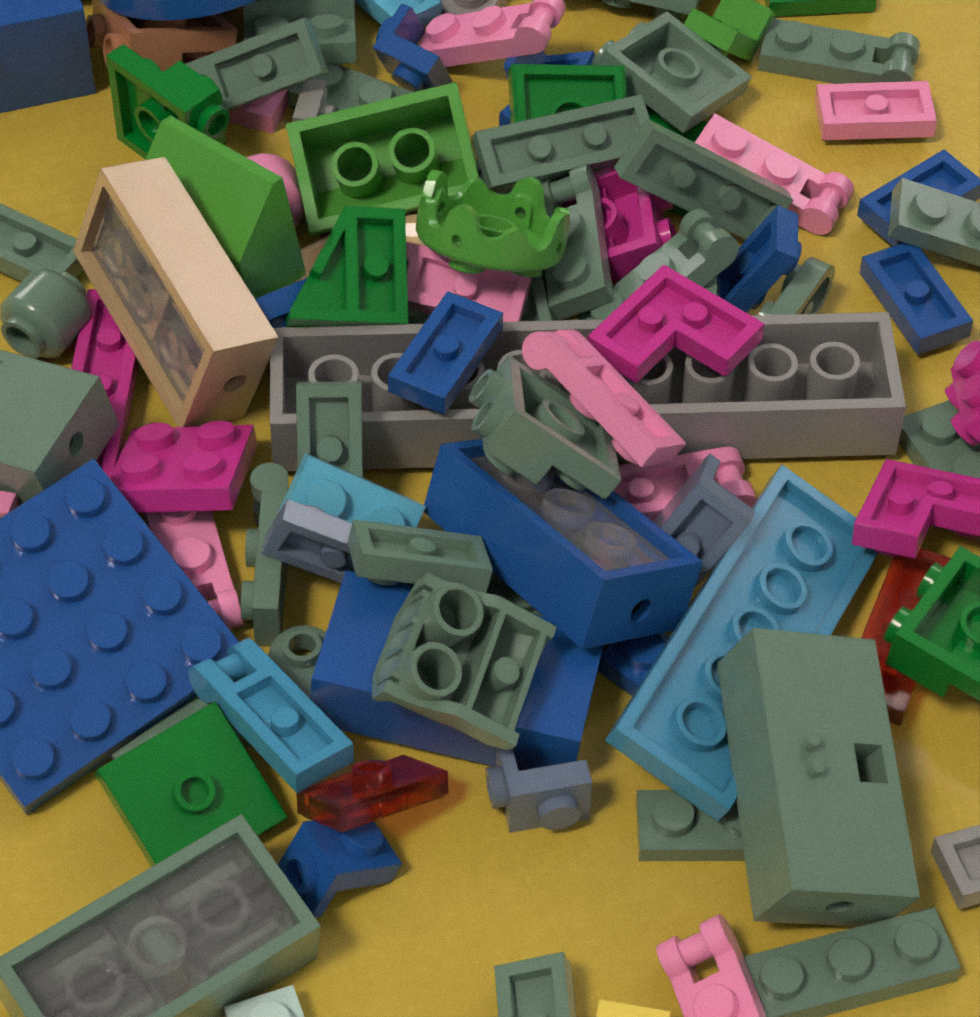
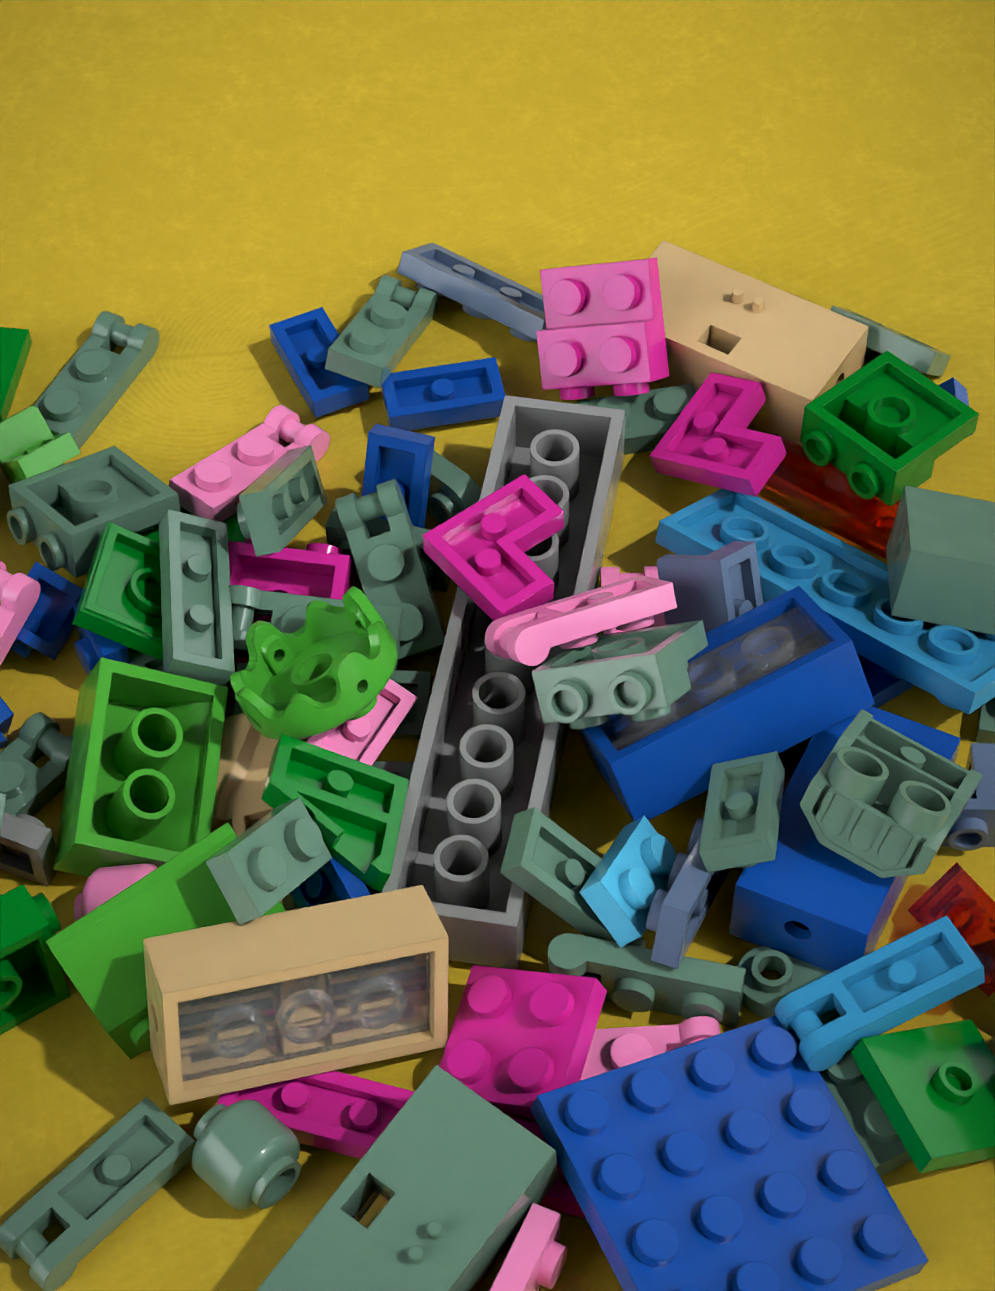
camera: 75 degrees left, 0 degrees up
(263, 220) = (269, 860): none -> sand green plate
(445, 352) = (481, 741): blue plate -> none
(875, 110) = (187, 368): bright pink plate -> none

